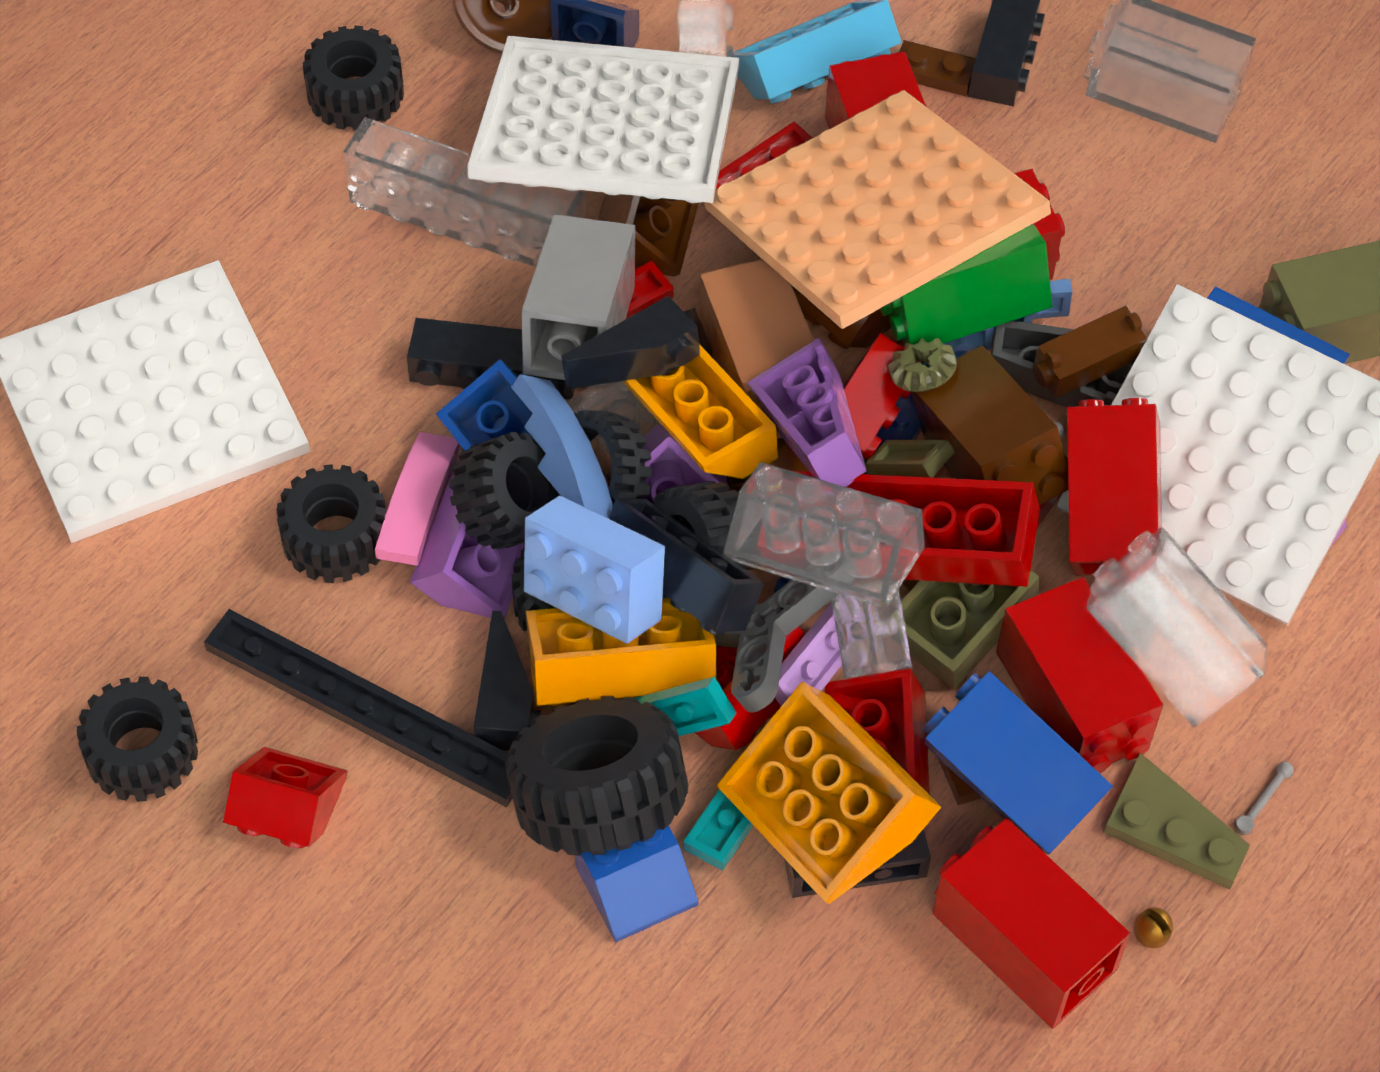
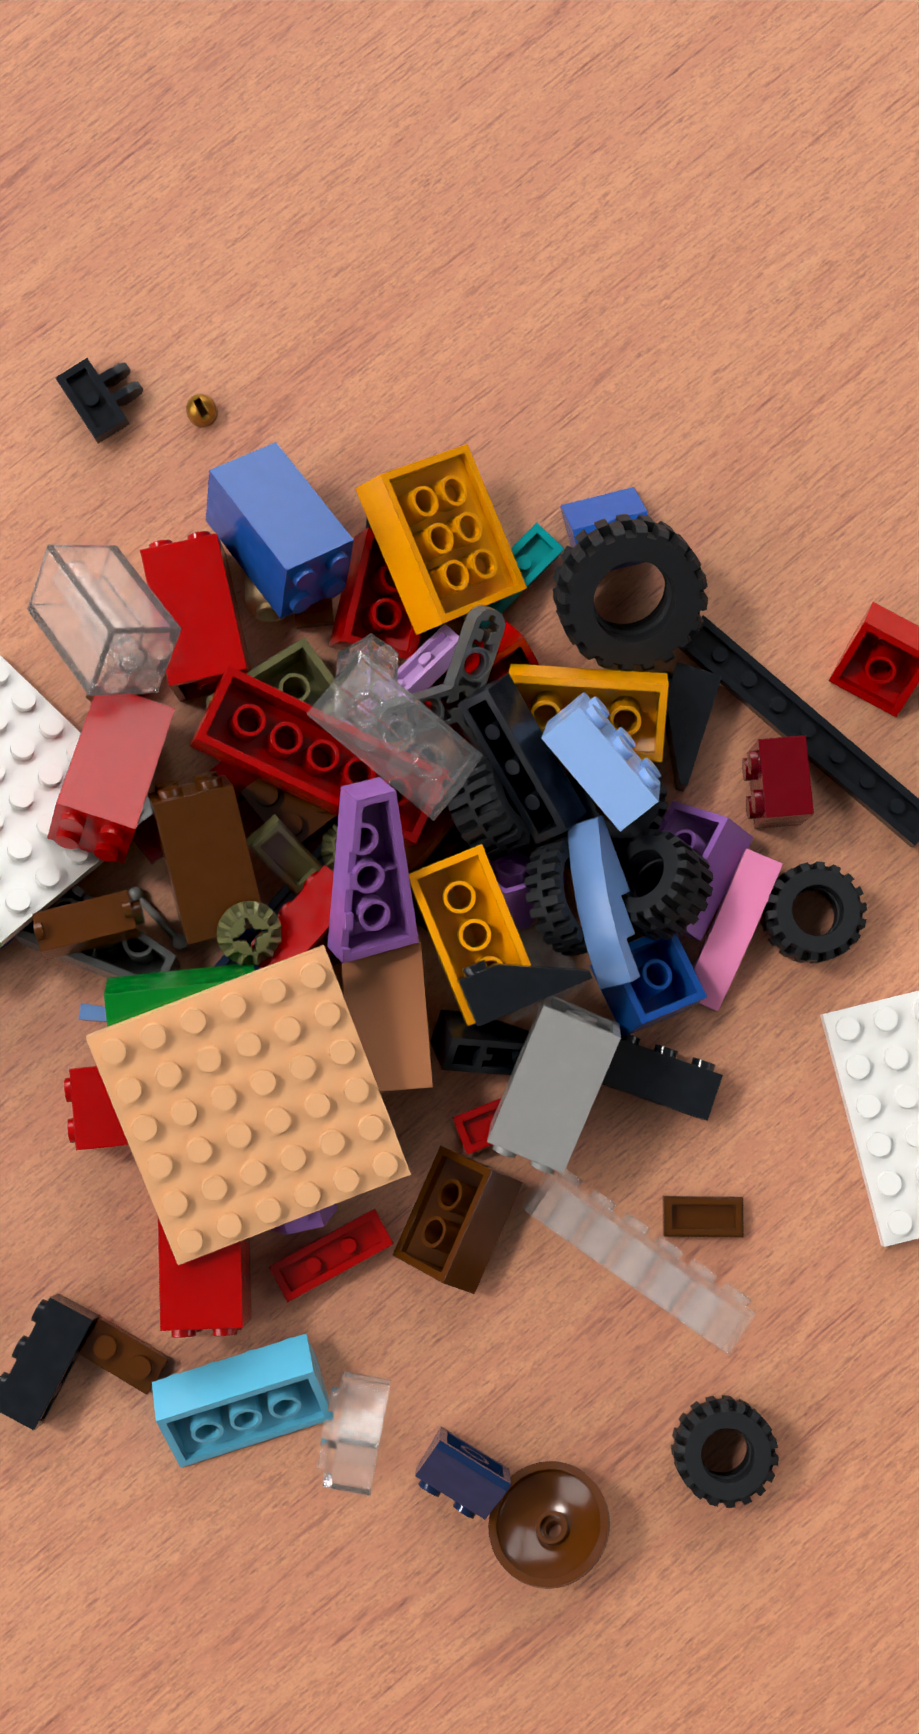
camera: 165 degrees left, 25 degrees up
(393, 629) = (778, 782): none -> dark red brick
(404, 260) = (703, 1216): none -> reddish brown tile
(606, 119) = (484, 1306): white plate -> none
(693, 705) = (551, 643): teal plate -> none
(1029, 921) = (305, 408): red brick -> none
(1175, 826) = (157, 492): olive wing -> none
(1245, 823) = (97, 484): light grey hinge -> none
(1283, 908) = (93, 400): none -> black hinge

